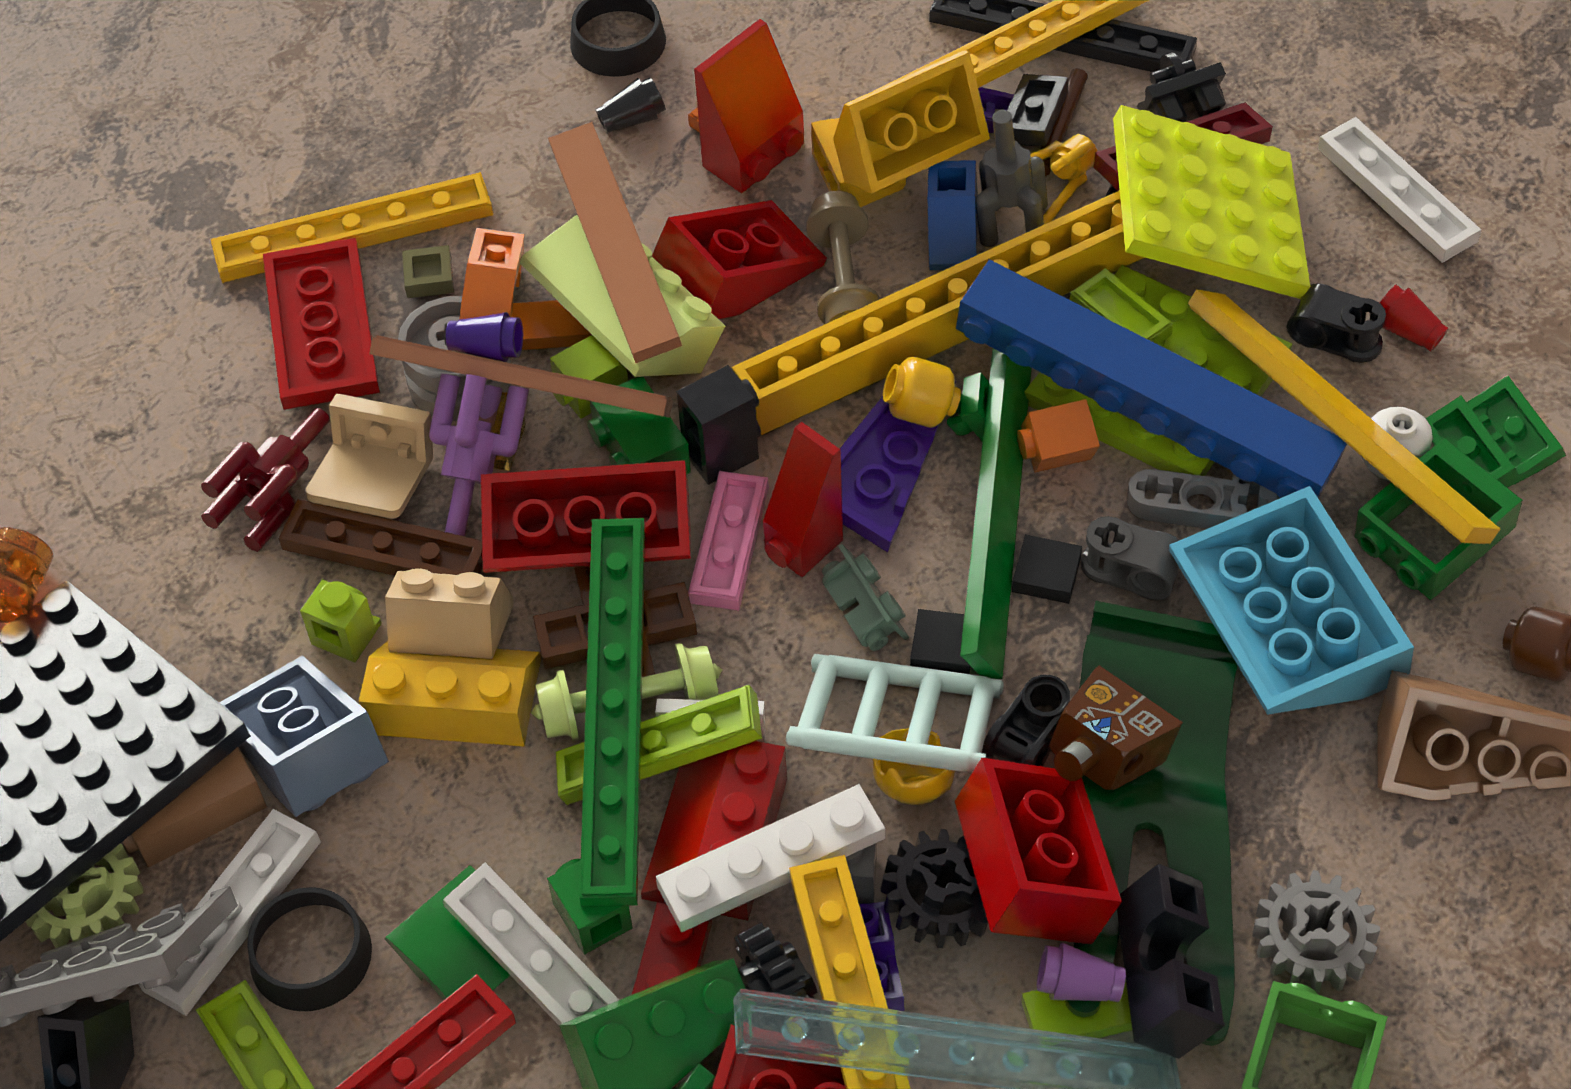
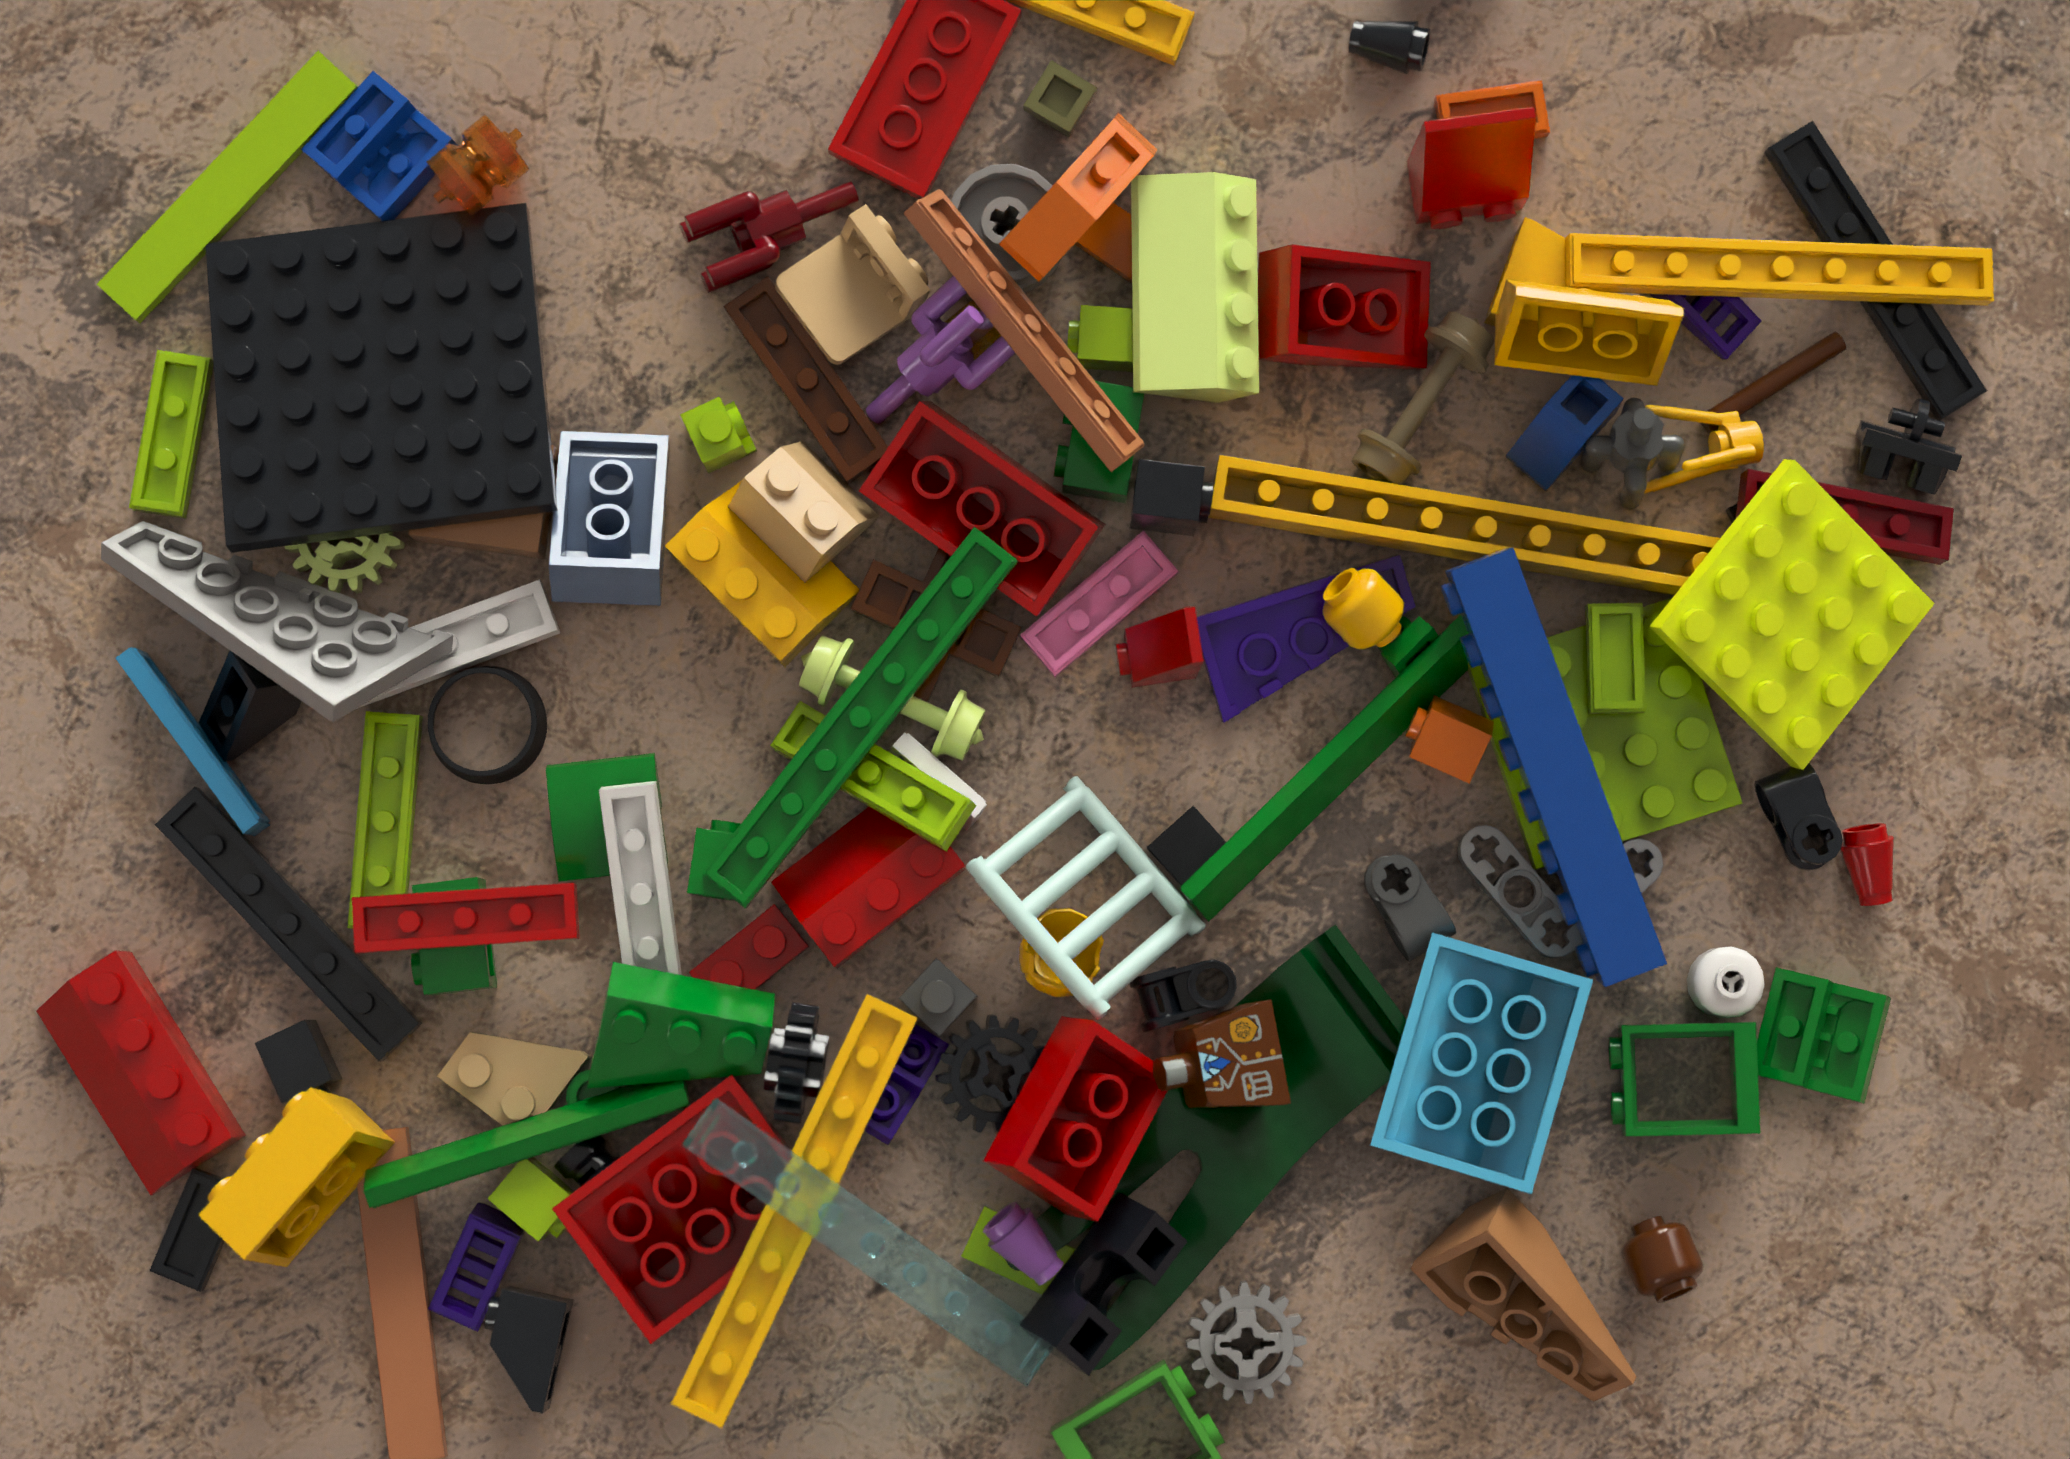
camera: 35 degrees right, 30 degrees up
(487, 336) = (1017, 274): dark purple cone -> none
(614, 243) = (1220, 235): nougat tile -> none
(763, 858) = (867, 964): white plate -> none
(877, 613) = (1166, 736): sand green hinge -> none
(1037, 107) = (1750, 360): black plate -> none
(1046, 569) = (1334, 849): black piece -> none
(1345, 419) = (1687, 930): yellow tile -> none
(1399, 189) = (1999, 717): white plate -> none

